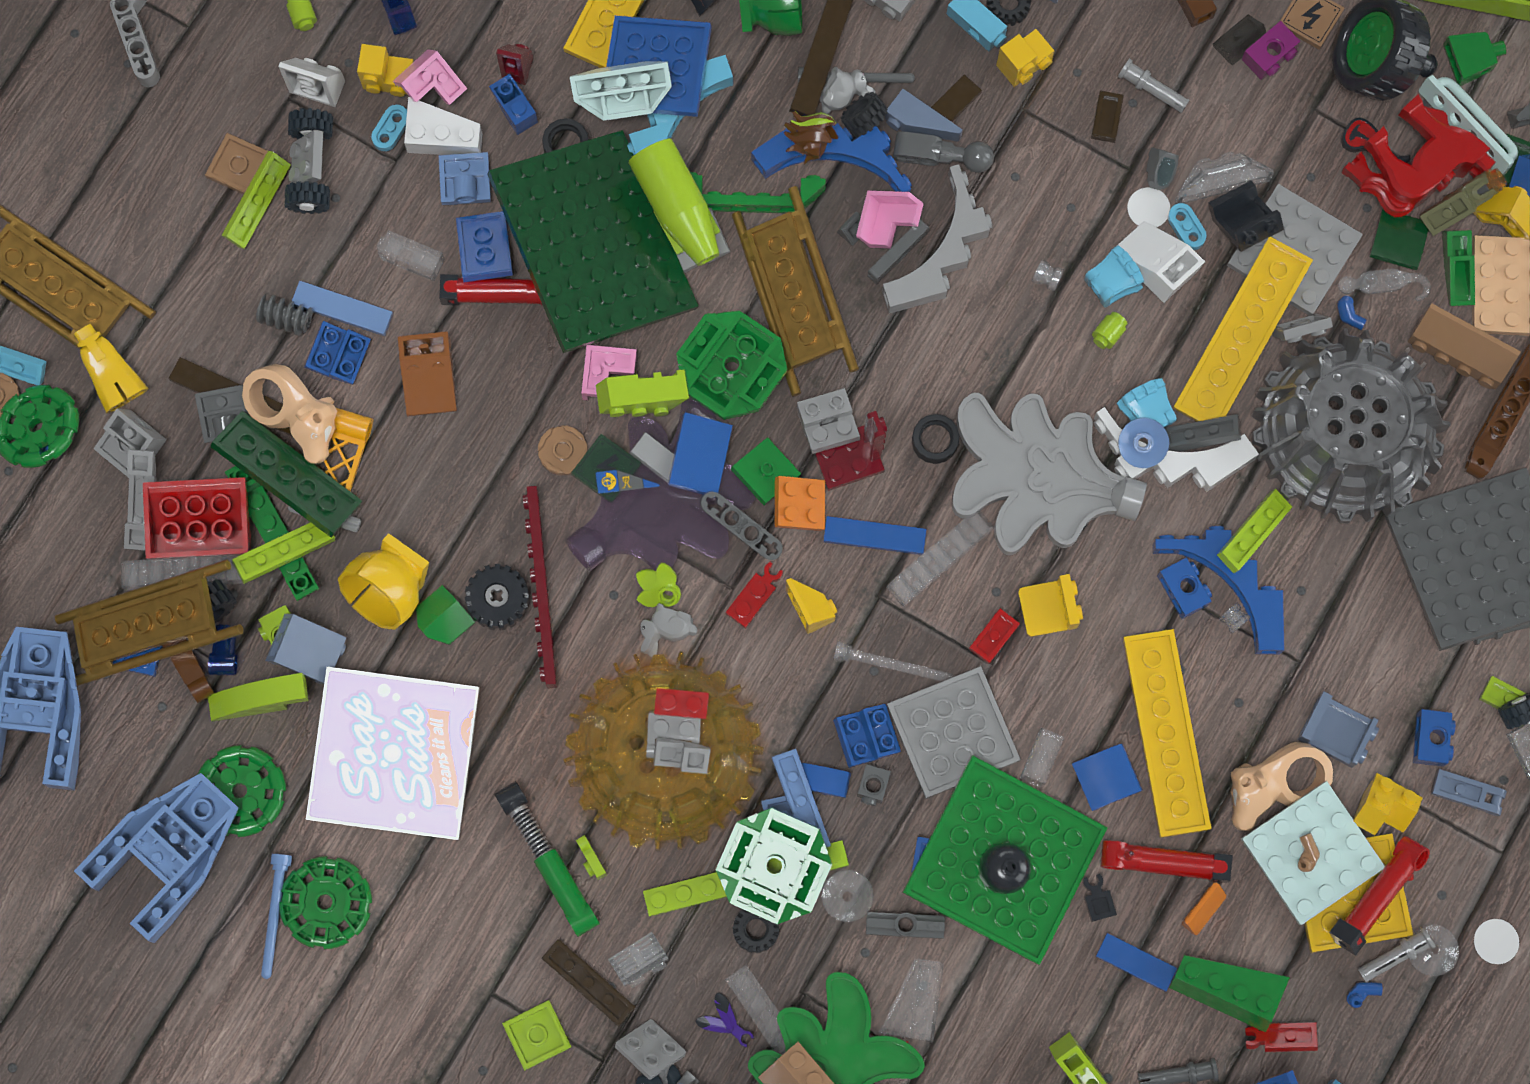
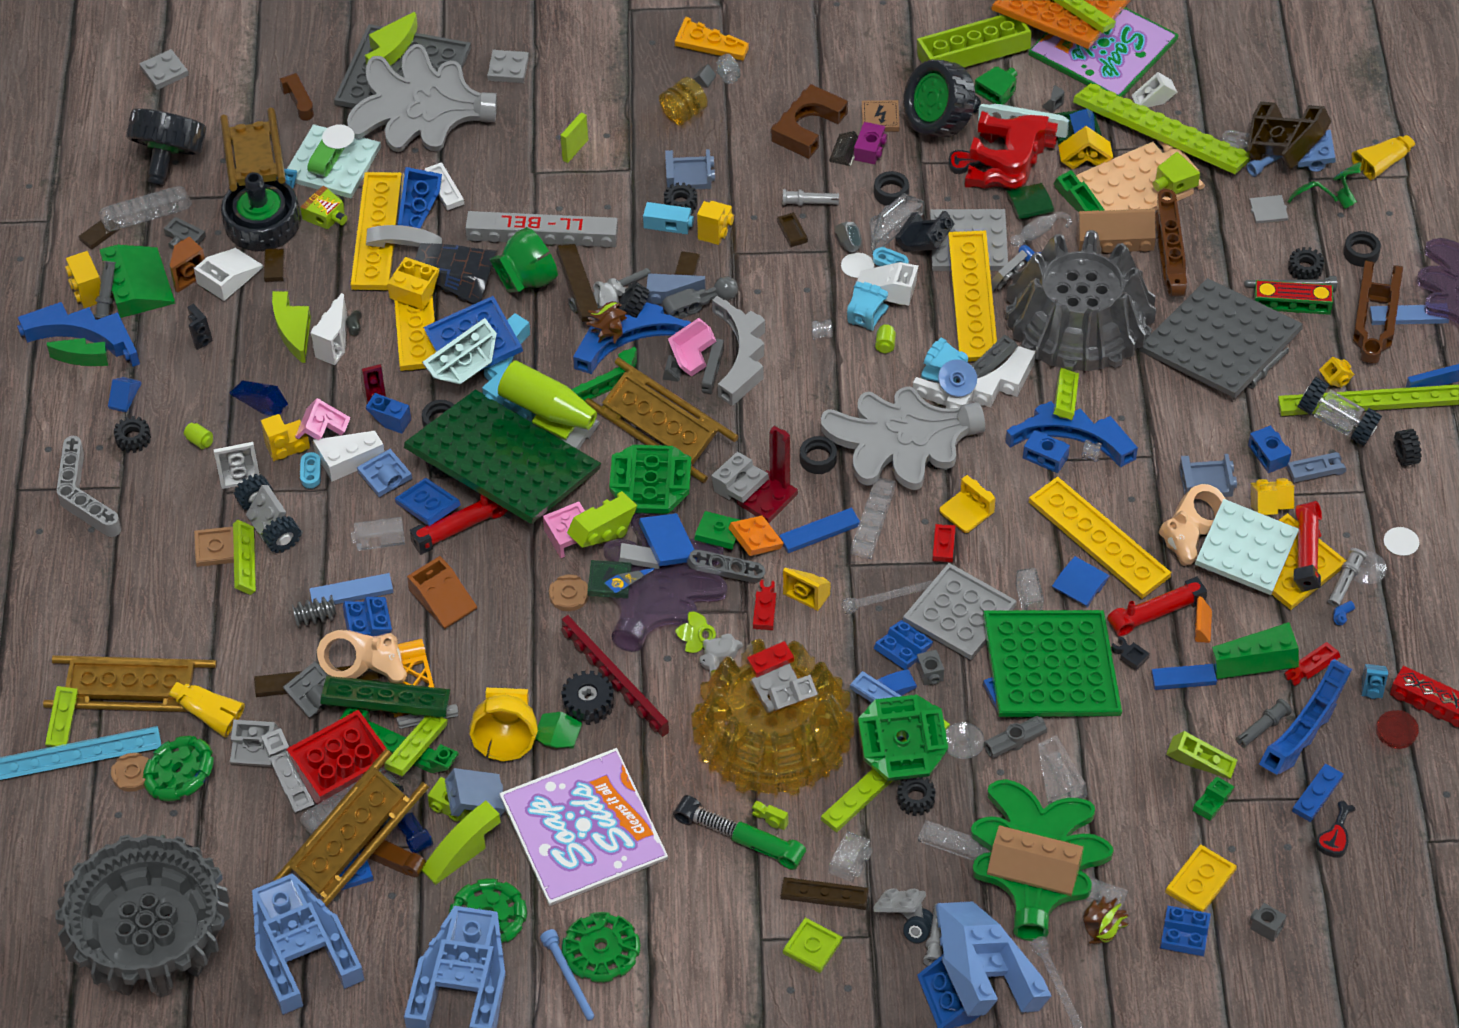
camera: 30 degrees left, 25 degrees down
(726, 1024) = (938, 864): dark purple piece -> none
(1004, 868) = (1056, 661): black cylinder -> none
(1261, 112) = (886, 178): none -> black tyre
(1310, 854) = (1246, 542): medium nougat arm -> none
(1463, 201) = (1054, 155): olive plate -> none

